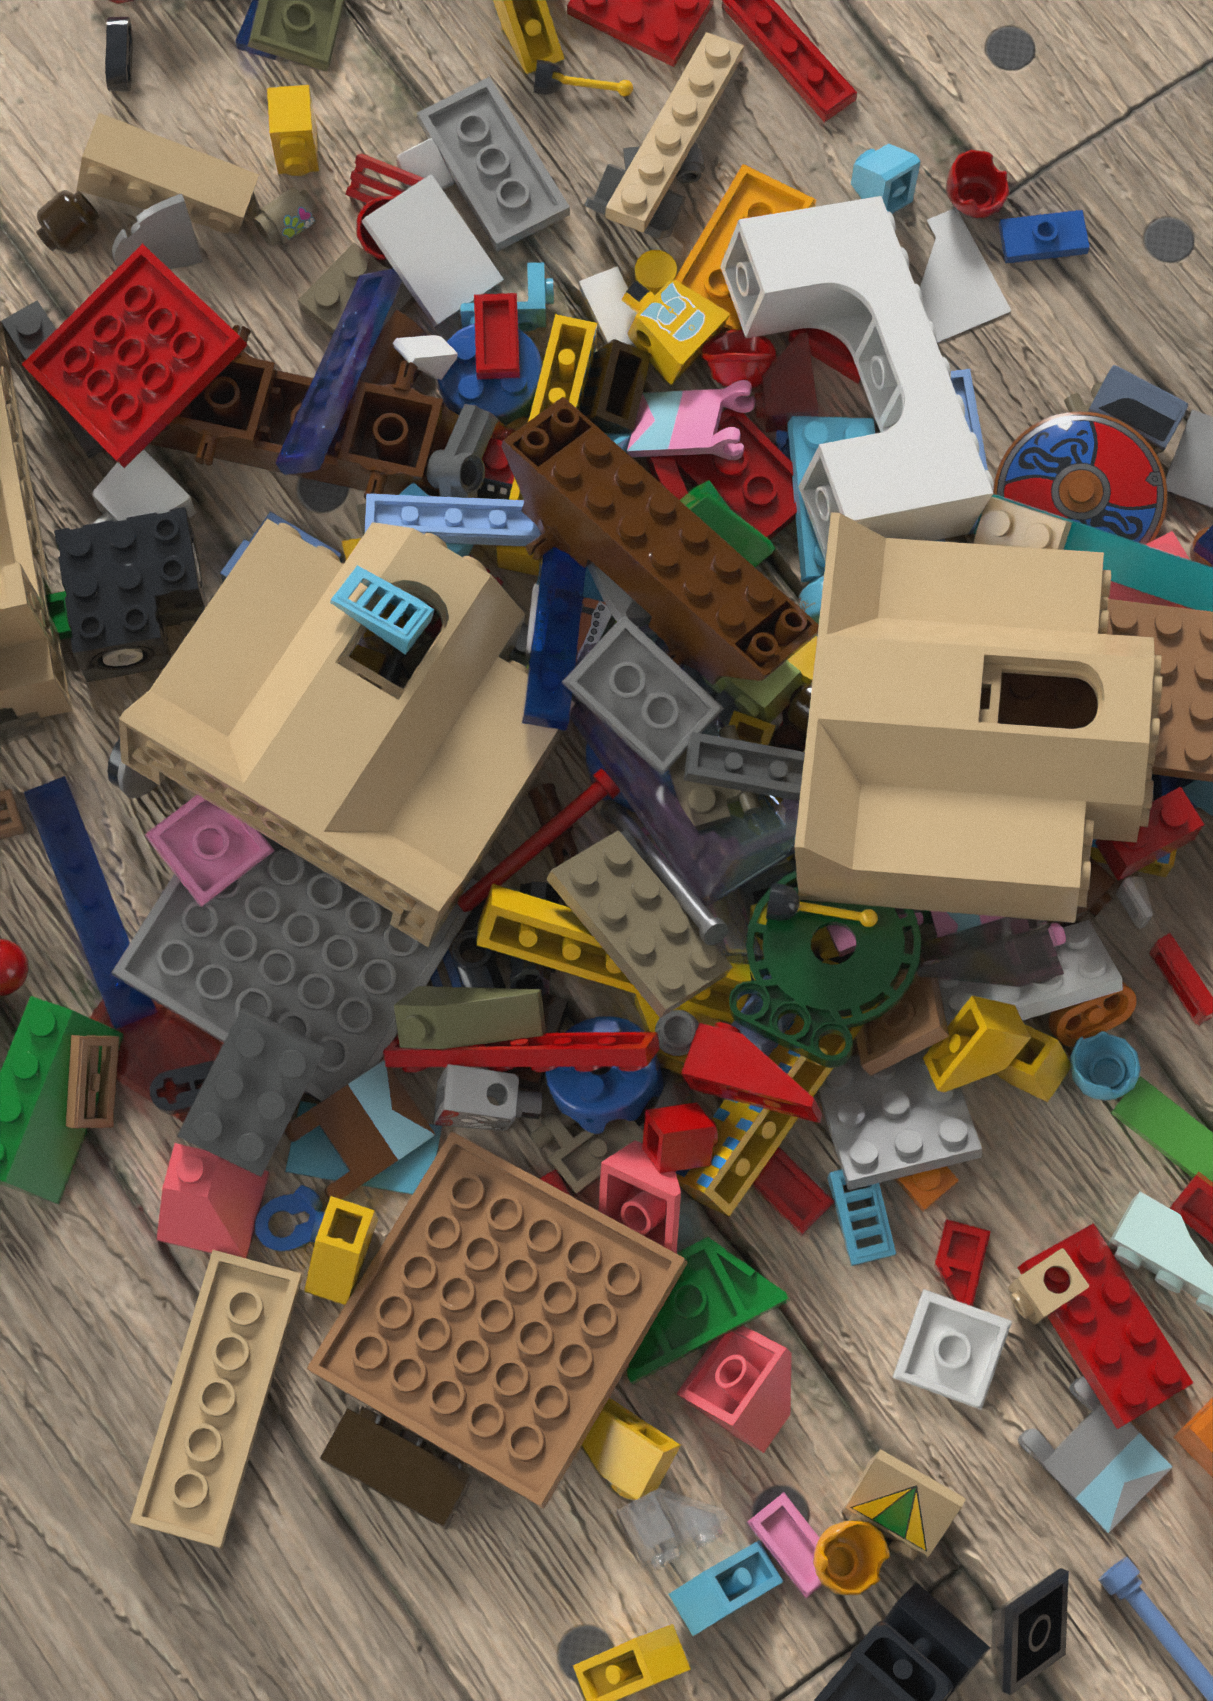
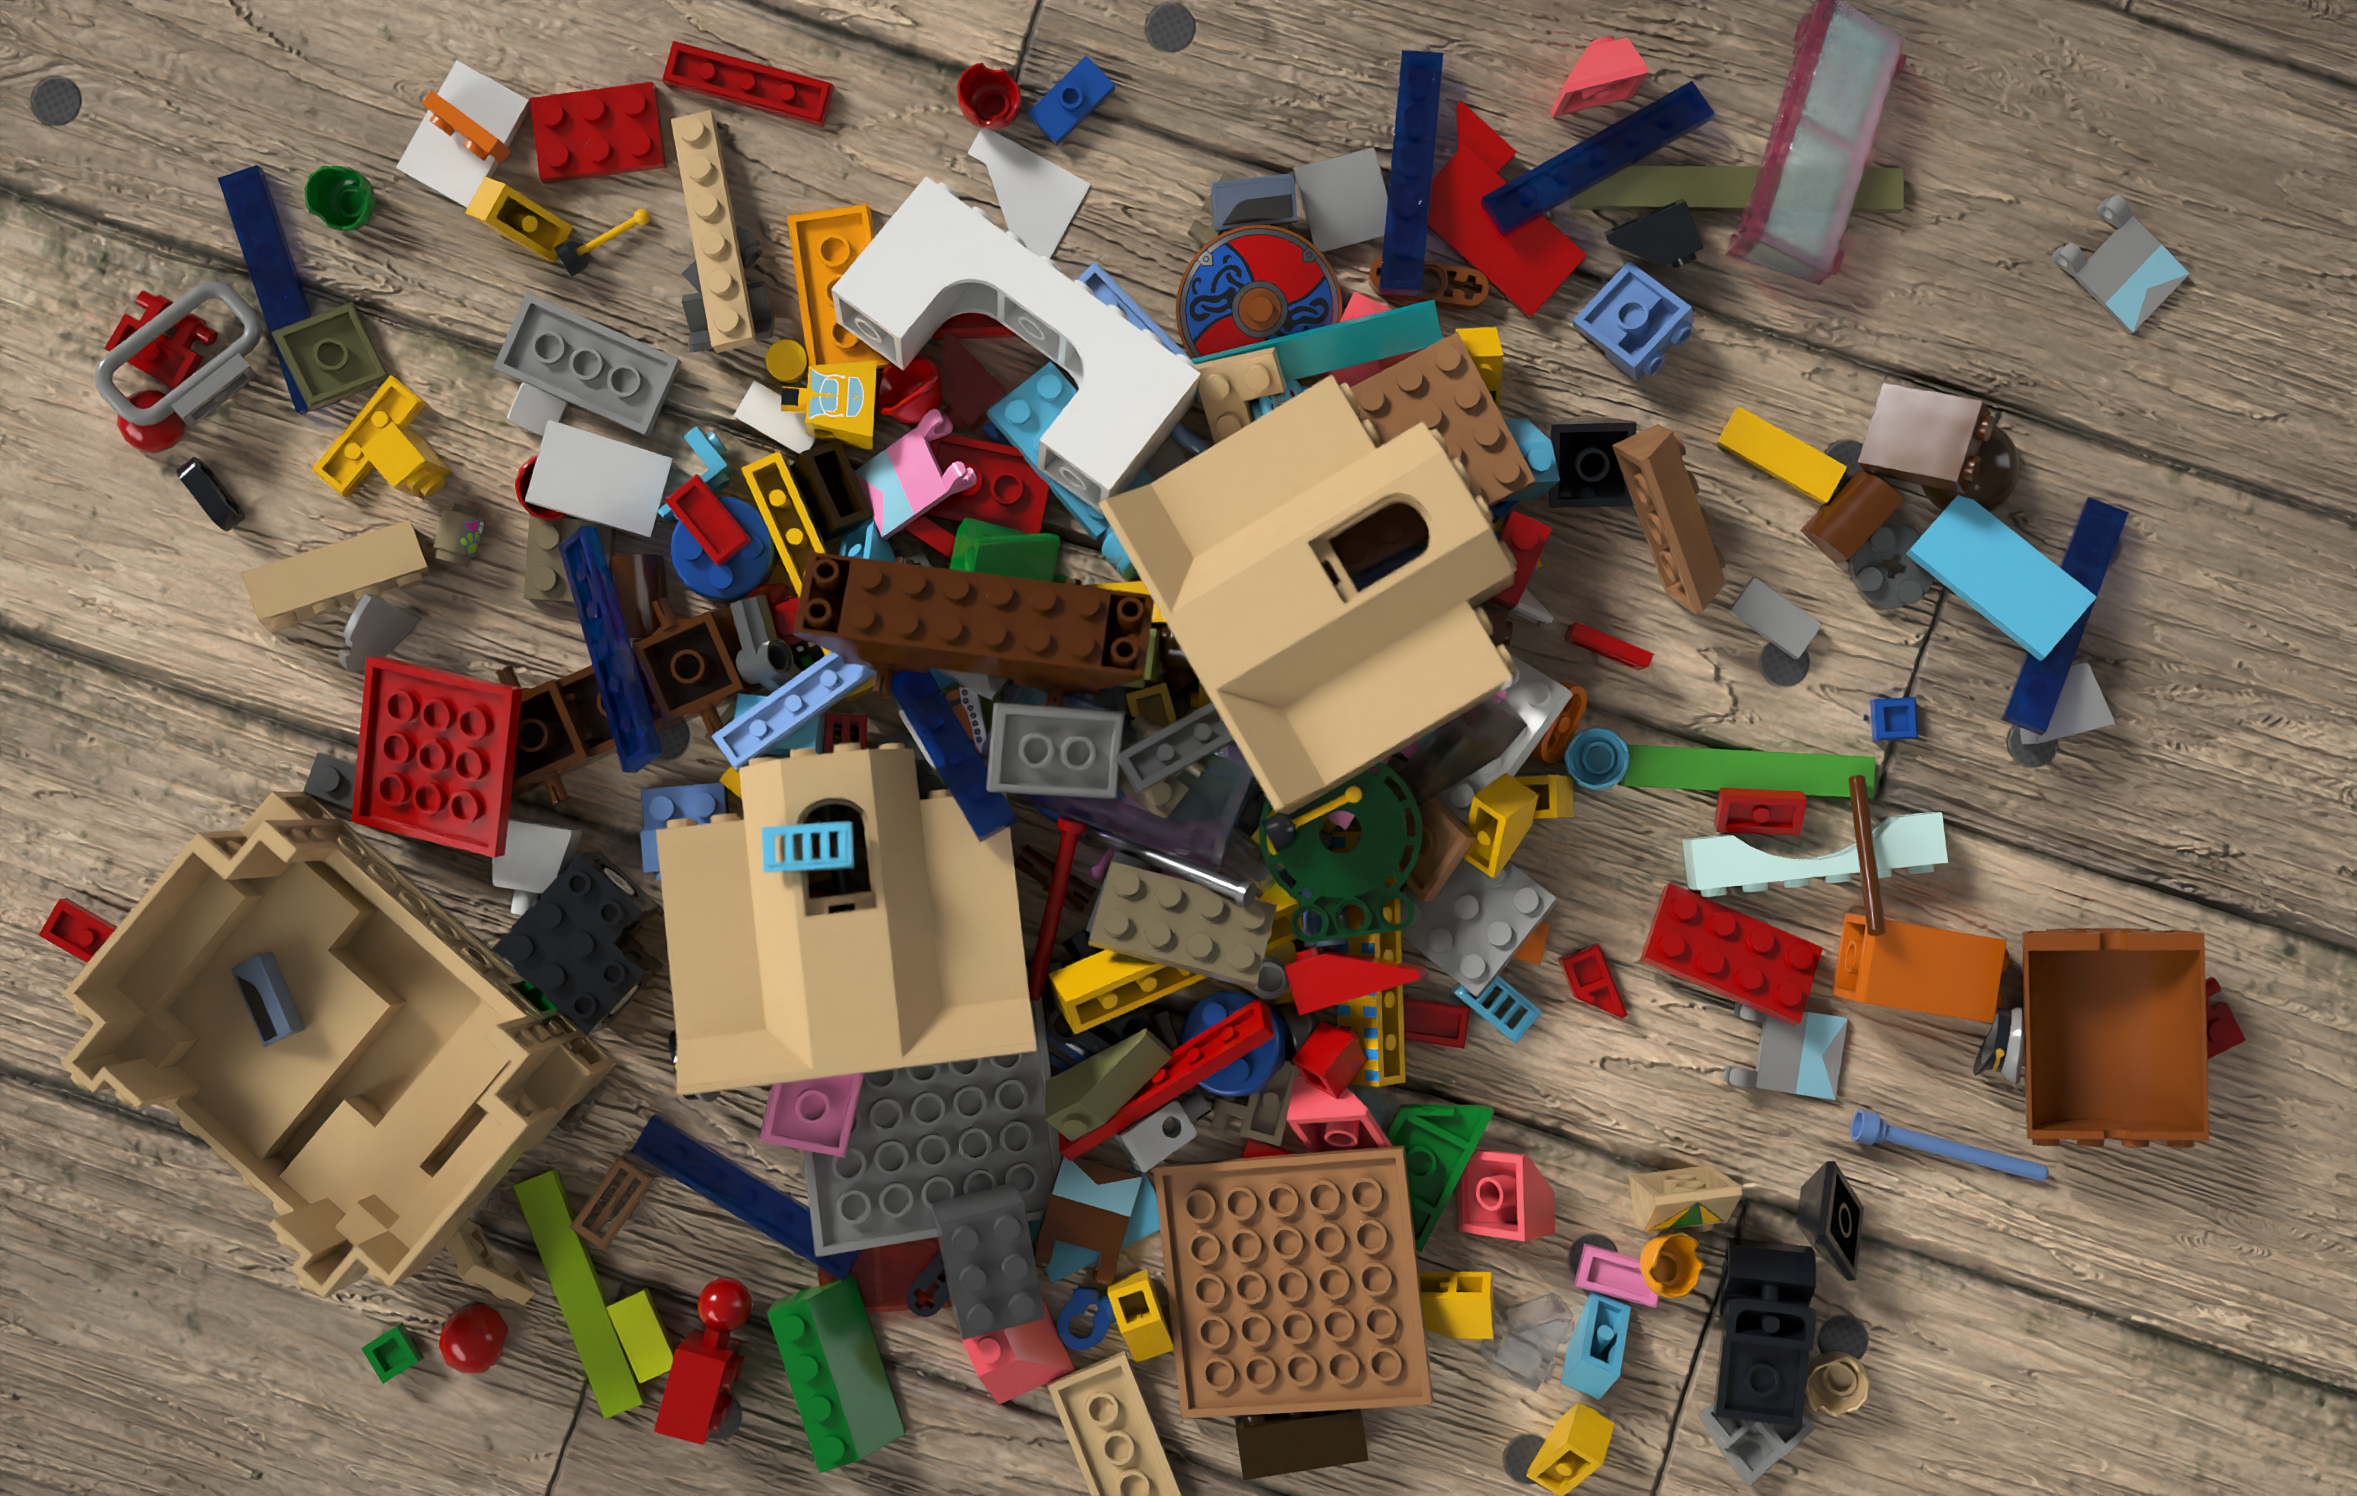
camera: 35 degrees left, 15 degrees up
(67, 221) = (287, 670): dark brown head -> none
(85, 1081) = (856, 1338): medium nougat tile -> none
(247, 103) = (343, 463): none -> yellow tile
(358, 177) = (510, 459): red tile -> none
(429, 353) = (664, 575): white slope -> none
(888, 174) = (911, 146): medium azure slope -> none
(952, 1349) = (1633, 1052): white tile -> none
(1034, 1299) = (1664, 974): tan bracket -> none

